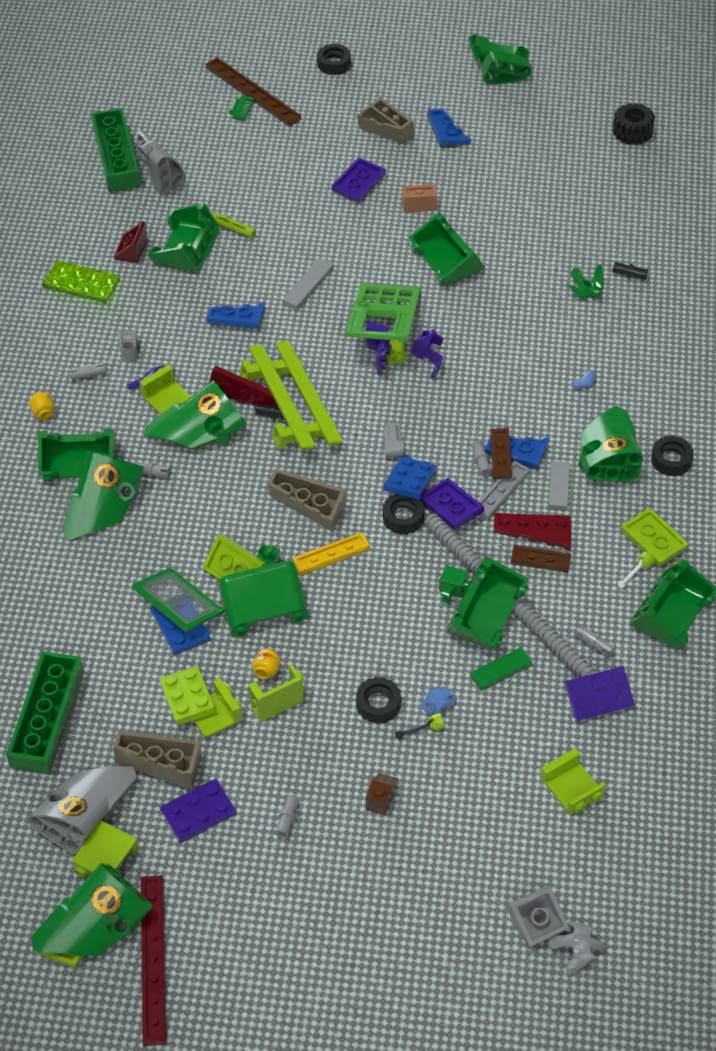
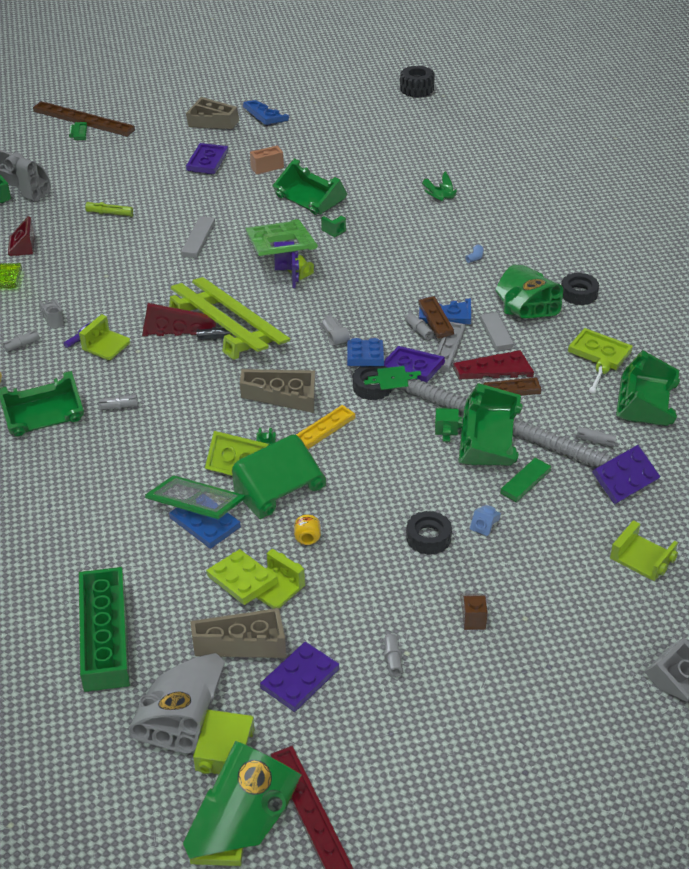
camera: 20 degrees left, 10 degrees down
(100, 494) = (78, 429): green panel -> none
(190, 240) = (74, 224): green windscreen -> none
(199, 420) = (149, 350): green panel -> none
(244, 316) = (144, 273): blue wing -> none
(278, 699) = (326, 560): lime panel -> none
(334, 67) = (145, 85): black tyre -> none
(413, 515) = (399, 374): none -> green piece
(422, 348) = (328, 255): dark purple piece -> none
(435, 722) = (491, 536): hinge -> none
(452, 307) = (333, 227): none -> green panel
(500, 62) = (286, 64): green panel -> none
(630, 270) = (469, 174): black pin -> none

